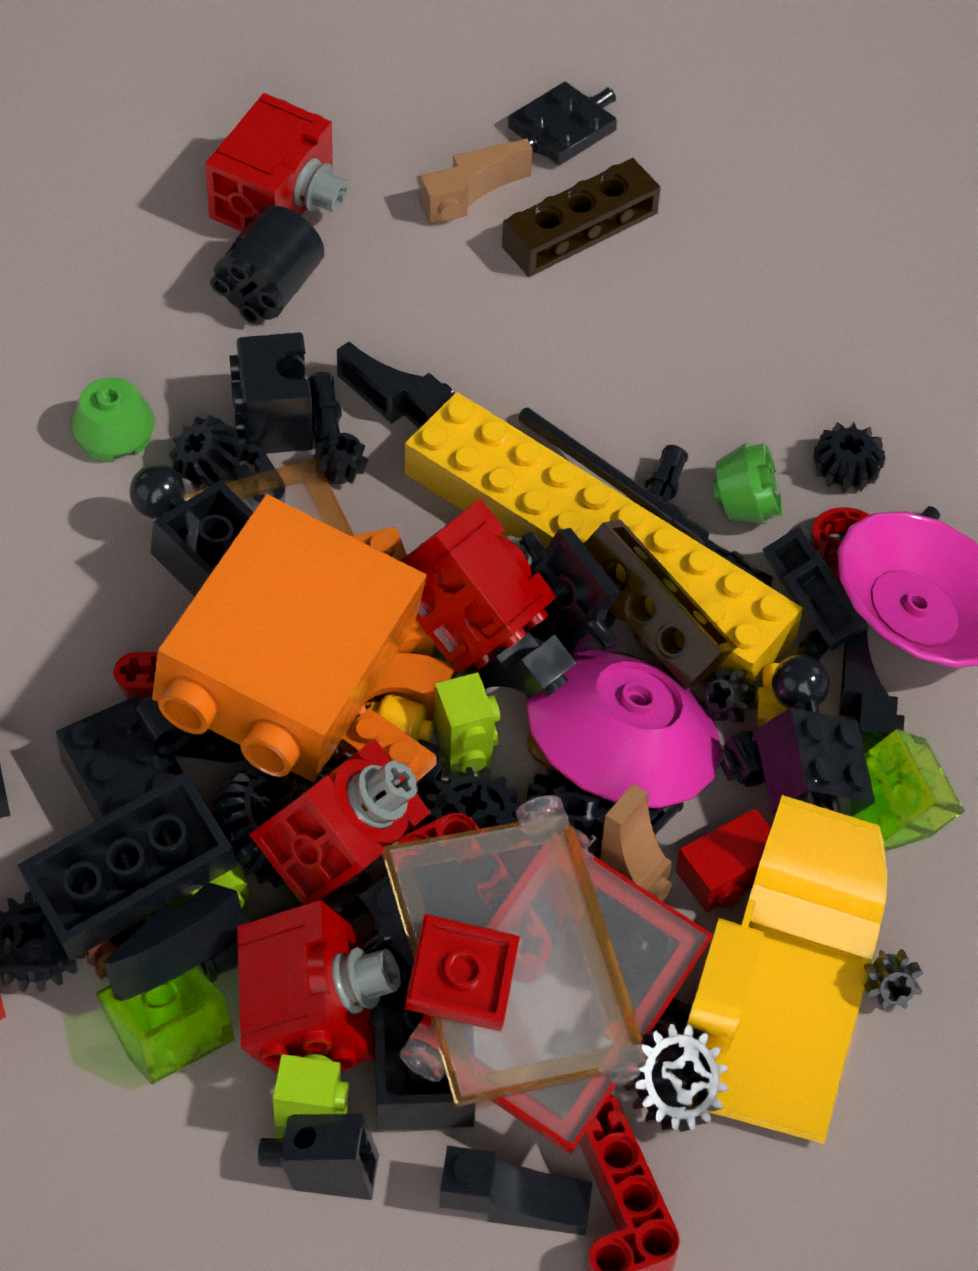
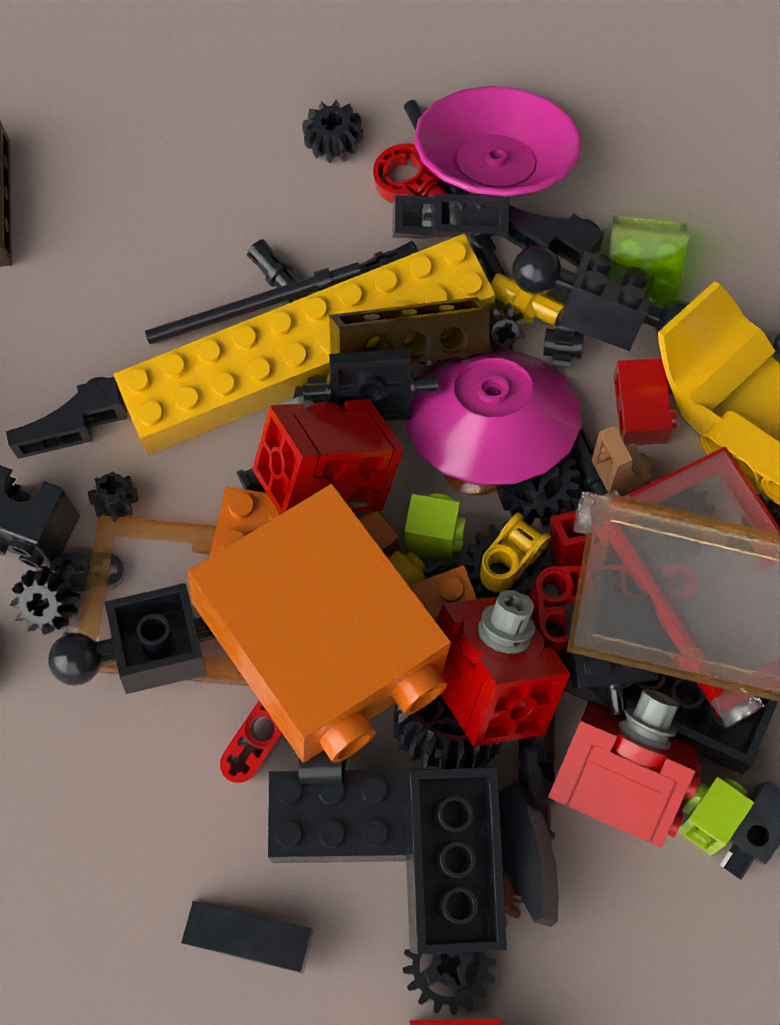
camera: 55 degrees left, 15 degrees up
(169, 1024) = (588, 891): clear neon green slope -> none
(325, 408) = (33, 477): black pin -> none
(462, 972) = (708, 644): red tile -> none
(477, 792) = (514, 547): none -> yellow piece
(529, 667) = (427, 449): black slope -> none
(748, 485) = (324, 211): bright green cone -> none

